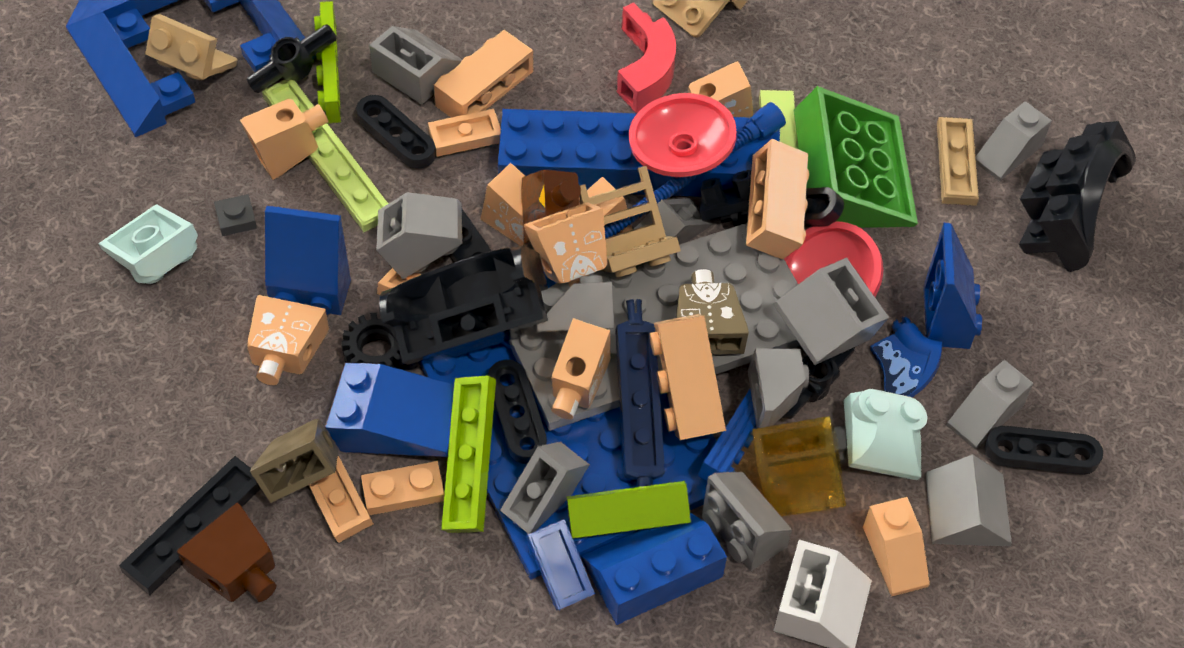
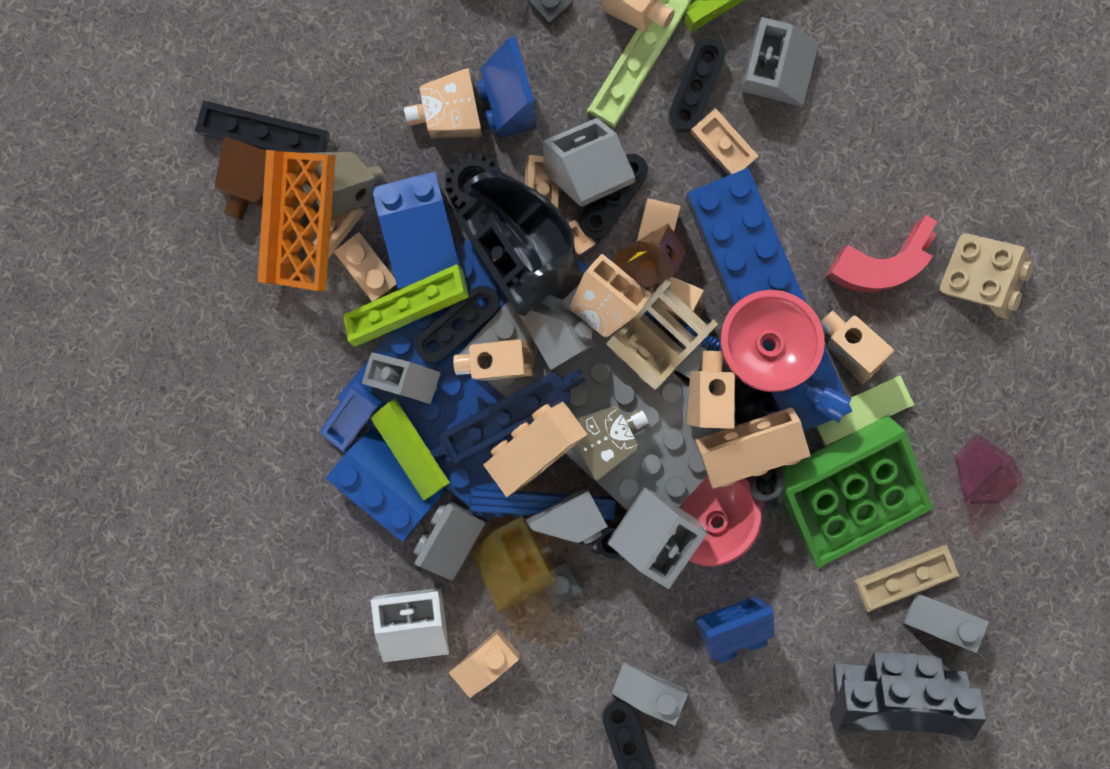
camera: 70 degrees right, 30 degrees up
(300, 534) = (282, 219): none -> orange fence
(484, 76) = (791, 129): light nougat brick -> none
(711, 205) = (716, 407): none -> light nougat torso
(878, 59) = (986, 472): none -> clear pink slope
(884, 432) = (580, 618): light aqua slope -> none
(907, 358) = (667, 610): blue arm -> none
(968, 504) = (550, 705): light grey slope -> none

